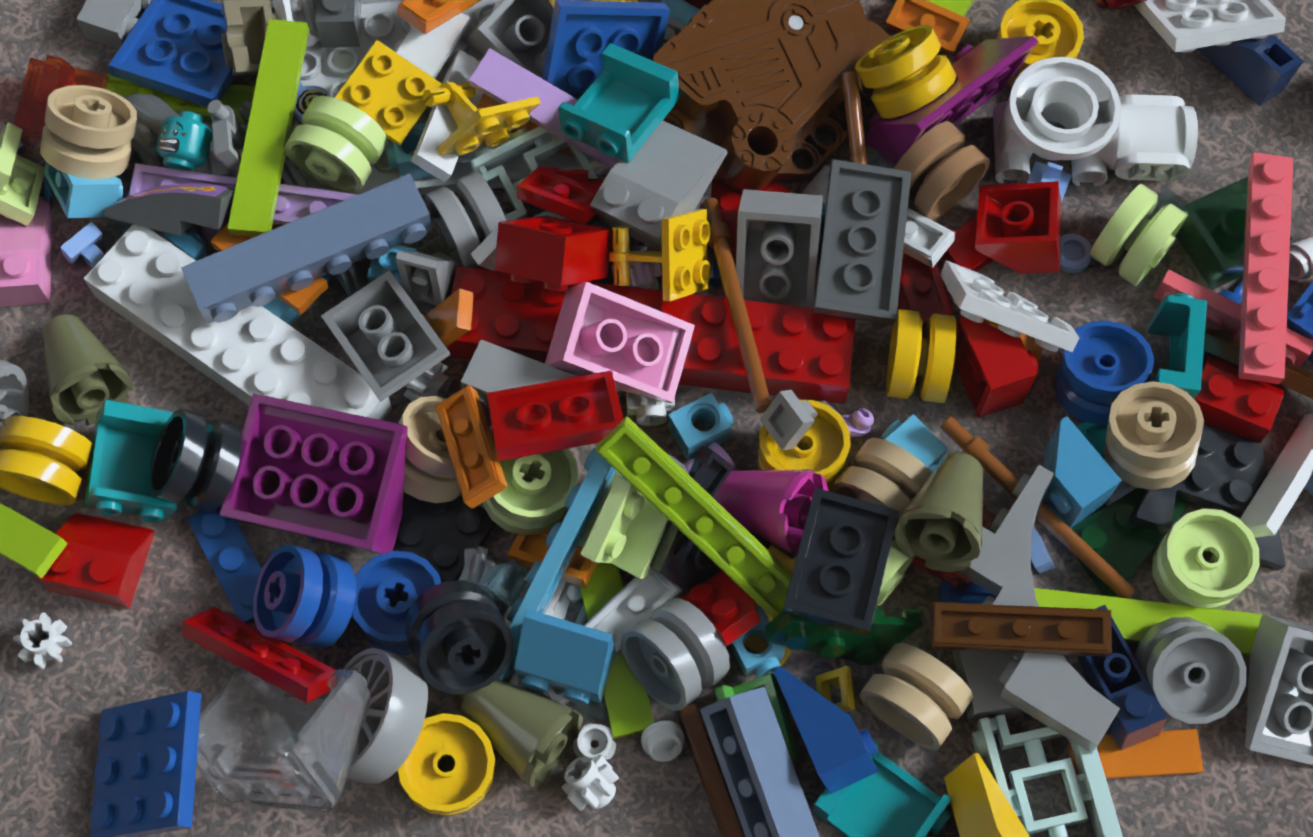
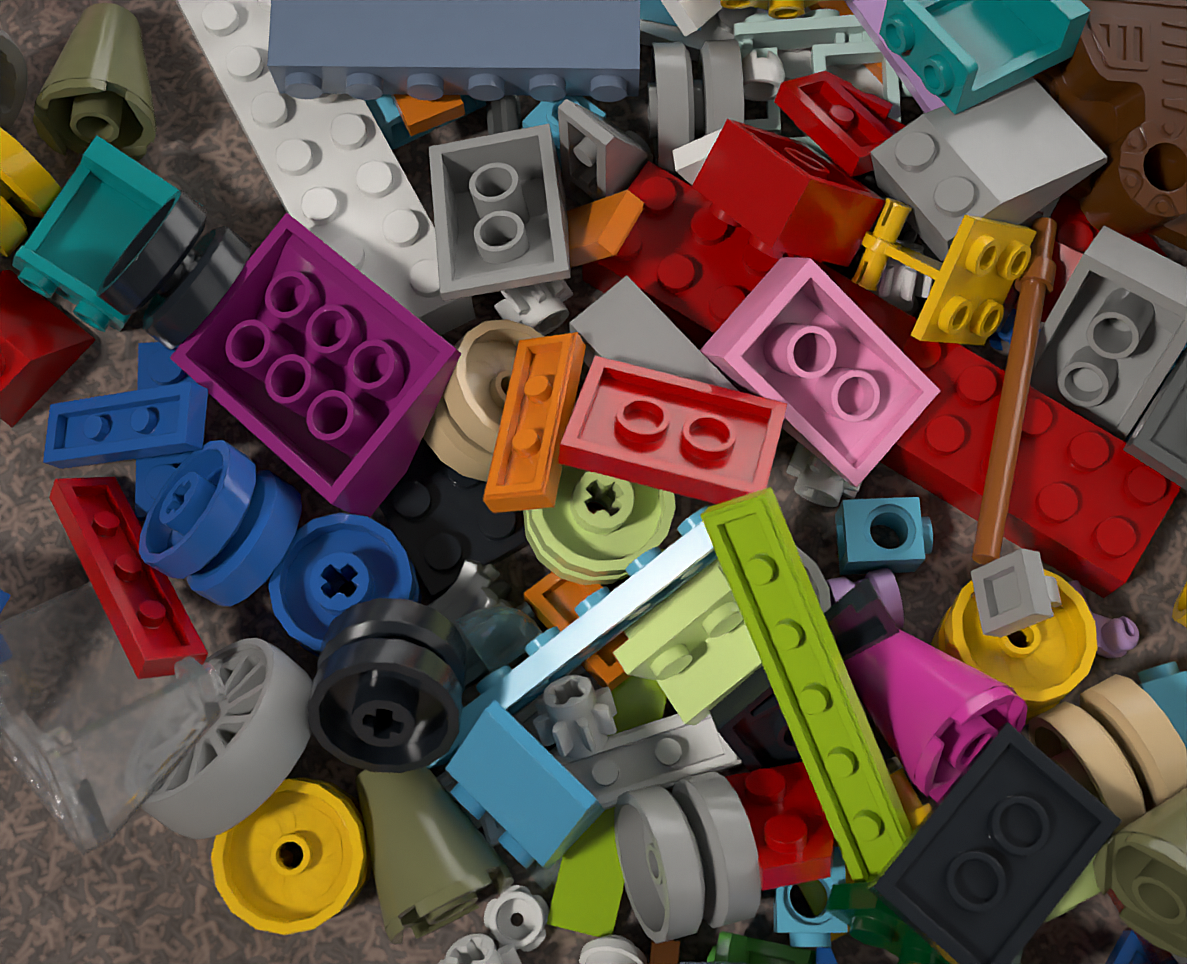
camera: 30 degrees right, 5 degrees up
(210, 569) = (126, 425): none -> blue plate
(503, 186) = (762, 76): none -> white hinge
(574, 604) = (575, 716): none -> white gear

